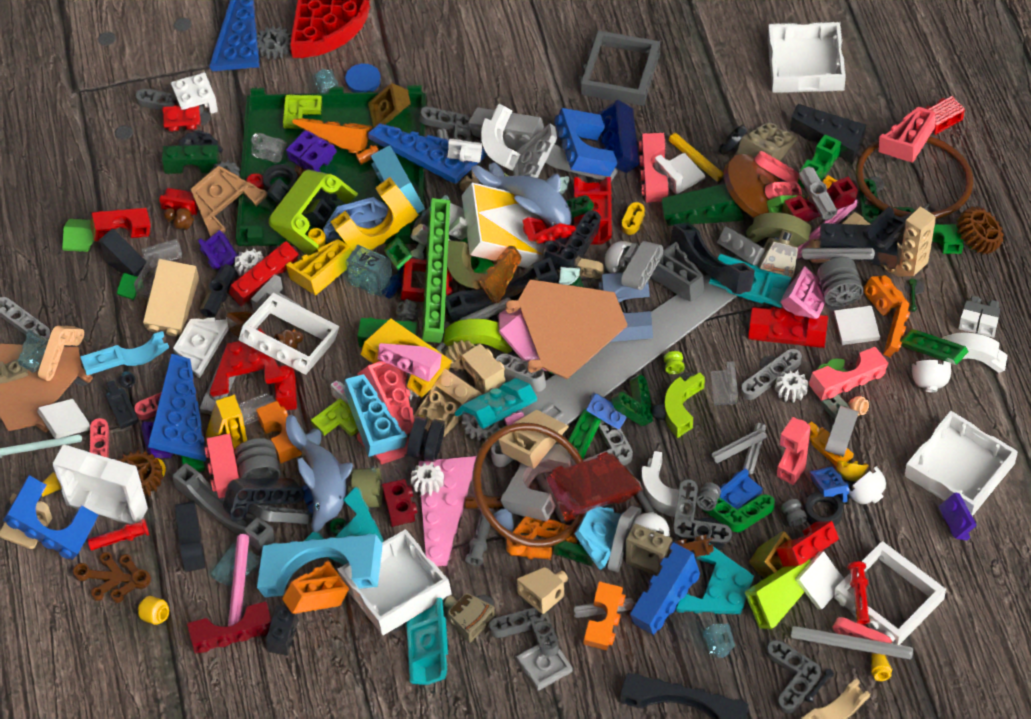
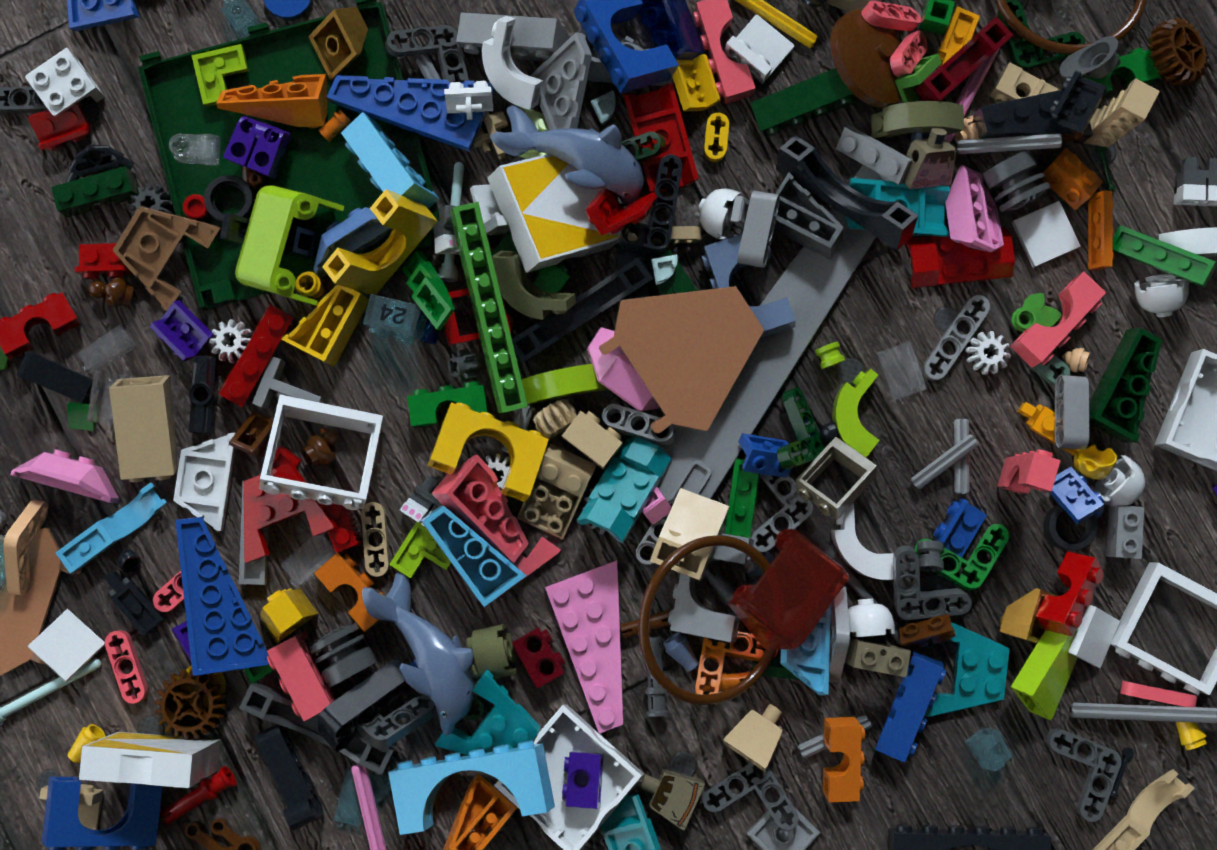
camera: 20 degrees left, 30 degrees up
(103, 316) = (68, 474): none -> bright pink wedge
(305, 398) = (366, 533): none -> tan beam
(405, 581) = (591, 765): none -> dark purple brick
(412, 359) = (506, 468): bright pink slope -> none
(426, 438) = (550, 567): black wheel -> none
(427, 478) = (558, 623): white gear -> none
(488, 311) = (568, 342): light grey axle -> none
(501, 274) = (575, 301): clear orange wing -> none
(627, 182) = (695, 84): none -> yellow bracket
(671, 433) = (851, 460): none -> dark tan window
(794, 514) = (1036, 543): dark grey wheel -> none
(814, 185) = (950, 40): light grey piece -> none
(859, 586) = (1145, 638): red pin -> none
(863, 520) = (1125, 532): none -> light grey brick
(883, 430) = (1124, 386): none -> dark green wedge

